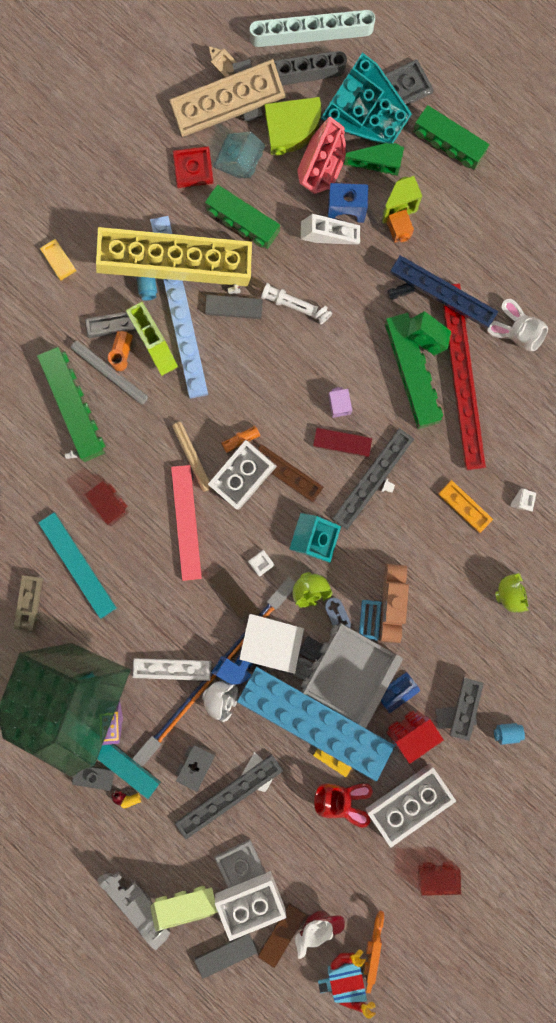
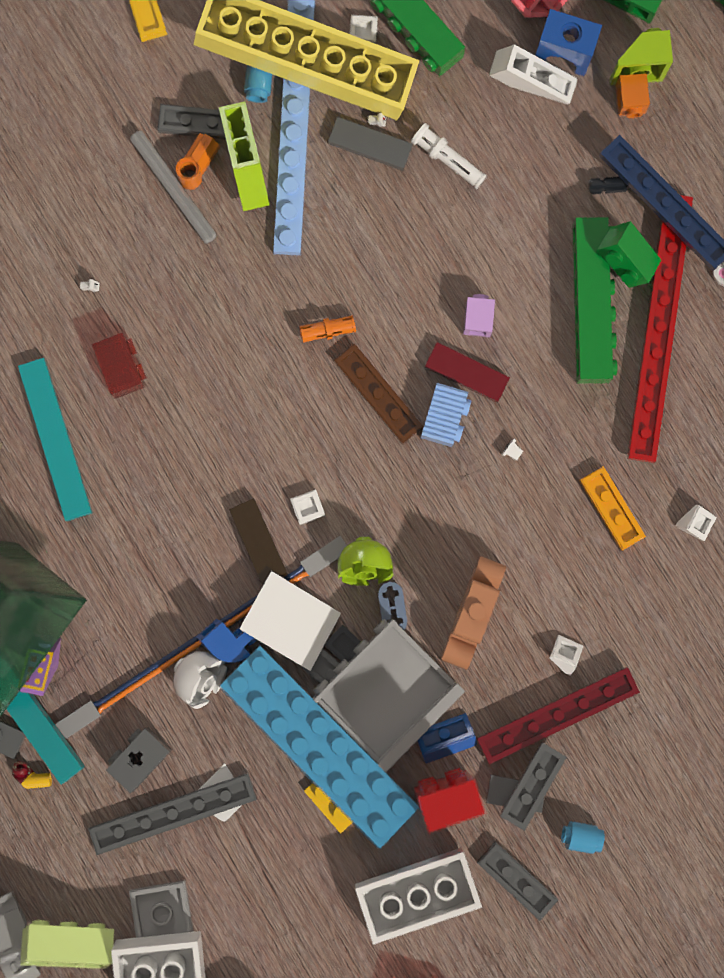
camera: 15 degrees right, 0 degrees up
(71, 404) = (108, 216): green brick -> none
(172, 669) = (144, 617): white tile -> none
(186, 523) = (220, 423): coral tile -> none
(191, 456) = (253, 334): tan axle -> none
(207, 229) = (364, 27): none -> white tile
(242, 475) = (315, 378): white brick -> none
(315, 537) = (392, 492): teal slope -> none
(323, 315) = (490, 189): white bush -> none
(335, 802) = (317, 860): red piece -> none
(336, 475) = (445, 415): none -> light blue brick
(369, 623) = (444, 605): dark azure tile -> none
(373, 479) = (495, 434): dark grey tile -> none
(462, 613) = (566, 654): none -> white slope
(469, 656) = (558, 715): none -> dark red plate
(473, 775) = (517, 881): none -> dark grey tile
(512, 594) = (642, 646): lime cylinder -> none

